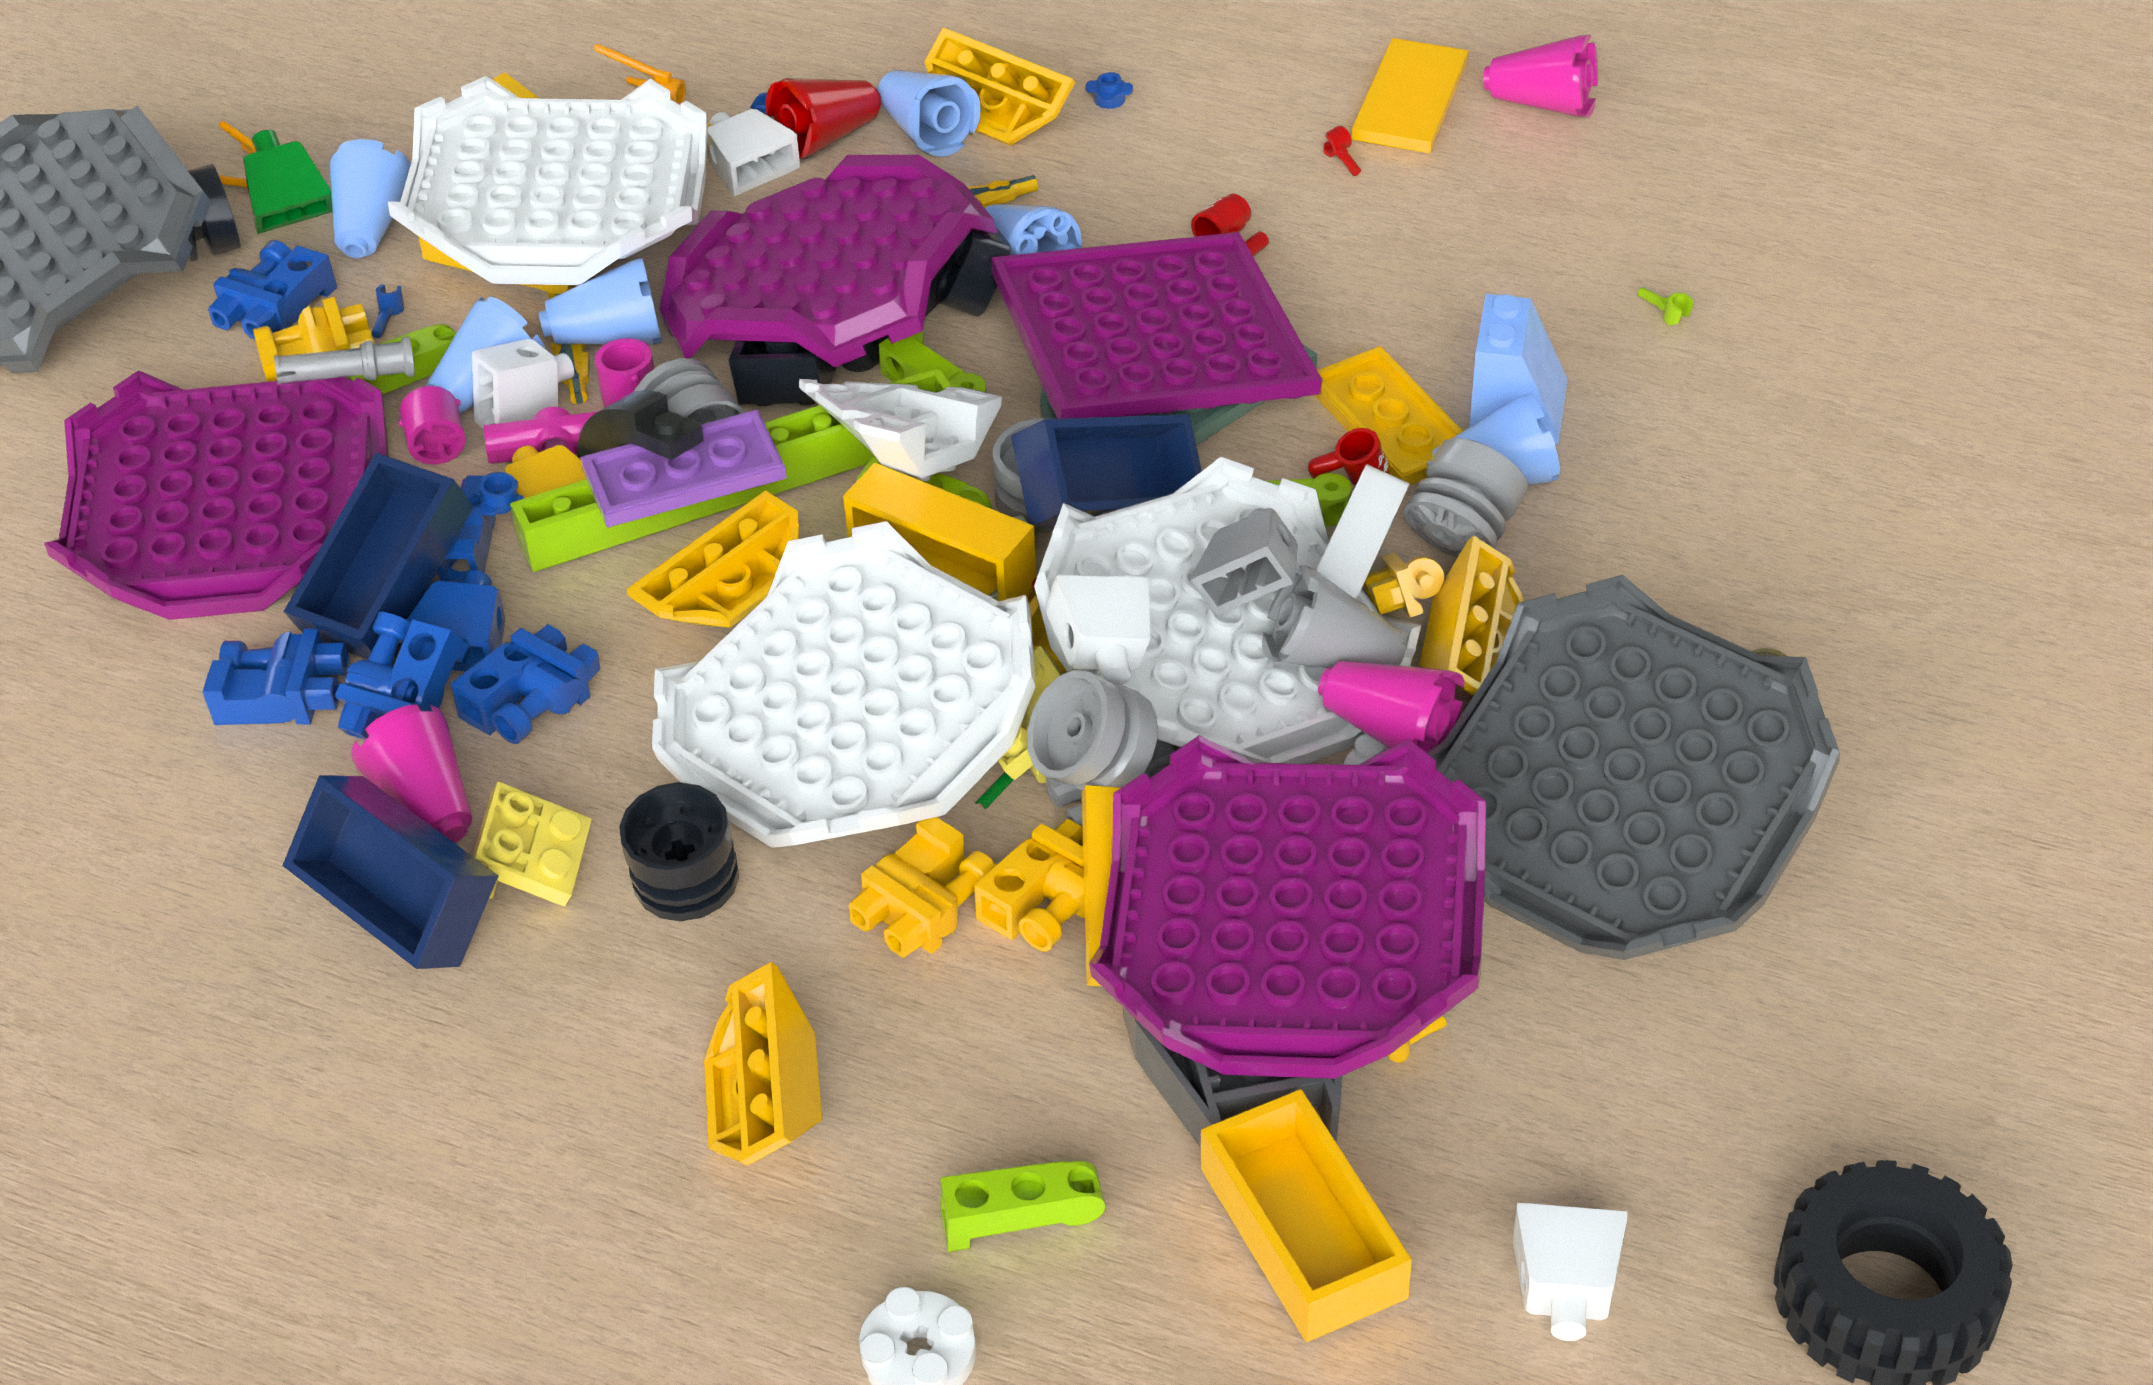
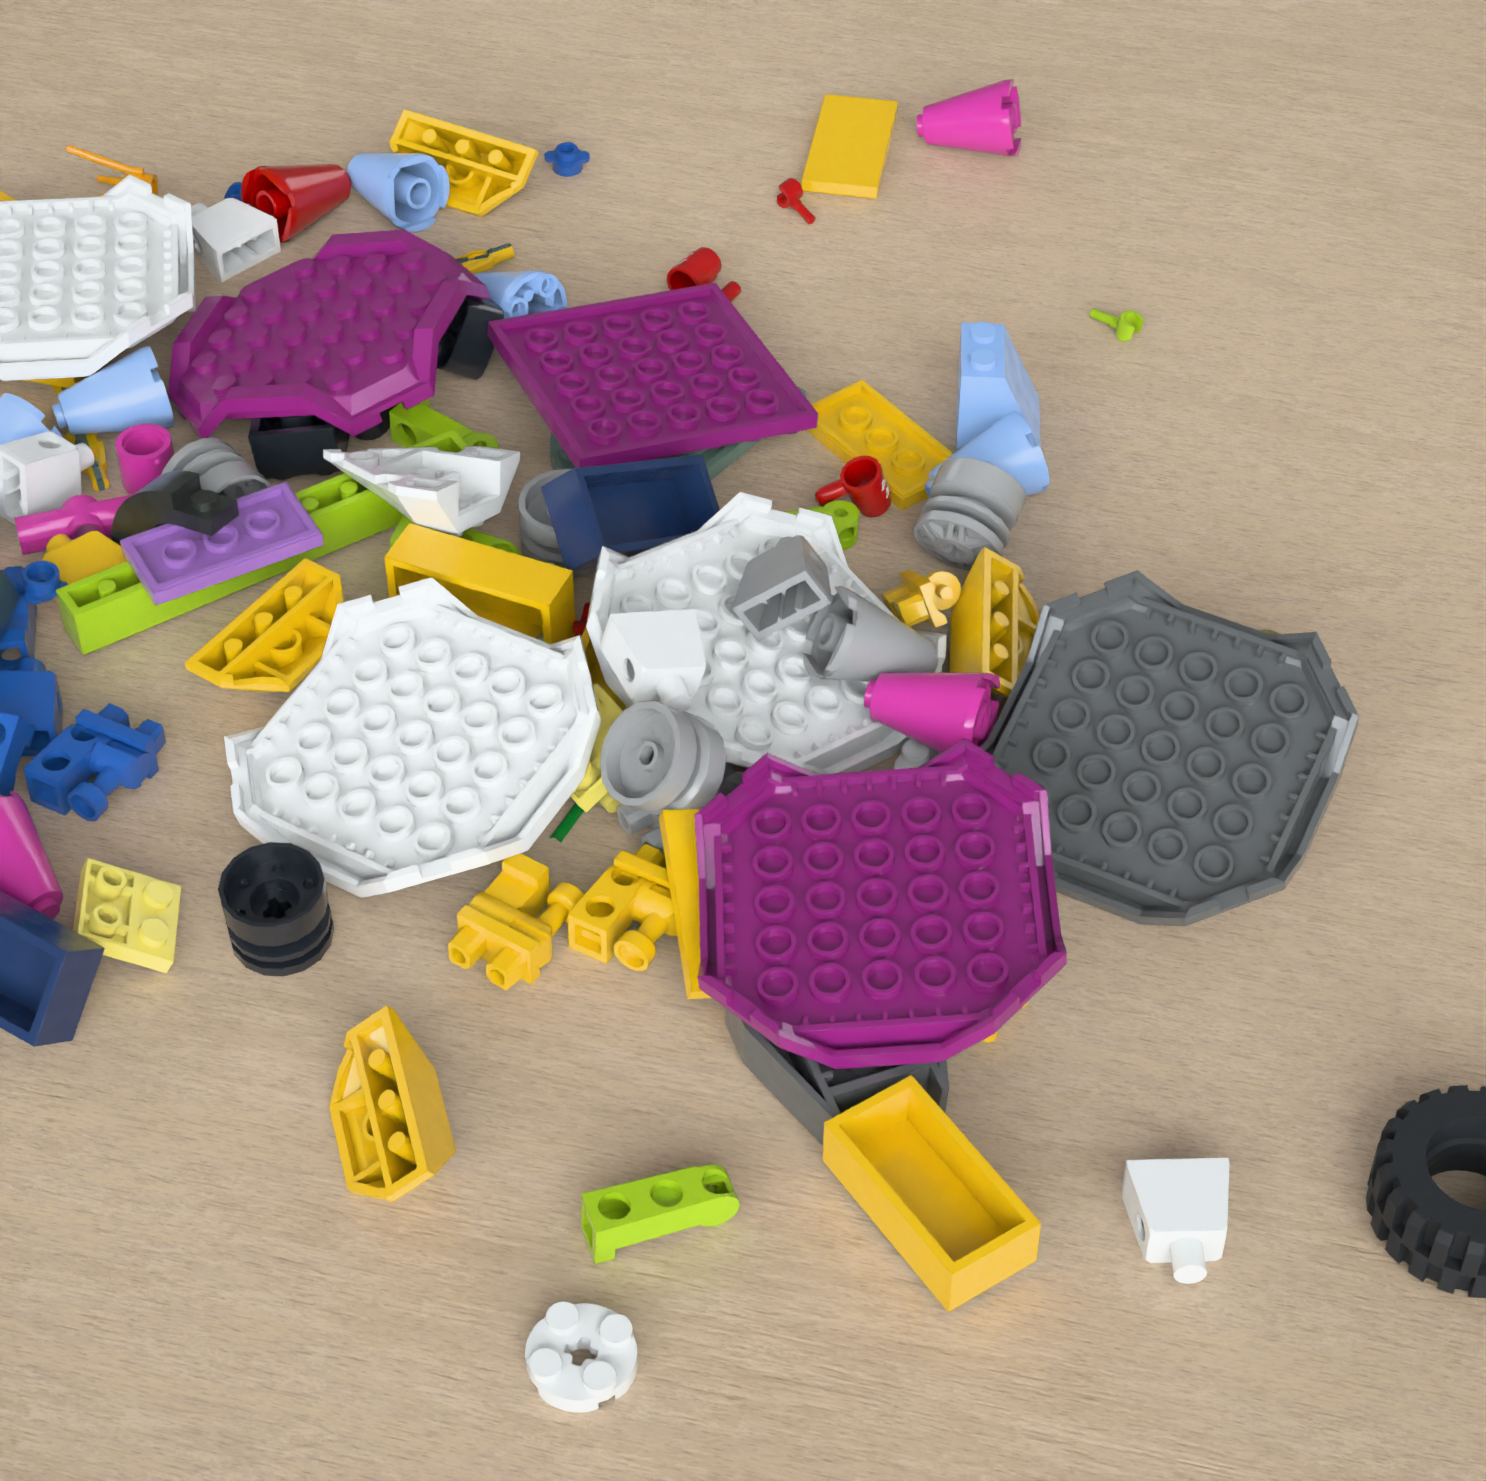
camera: 10 degrees left, 0 degrees up
(1362, 529) = (880, 547): white beam -> none

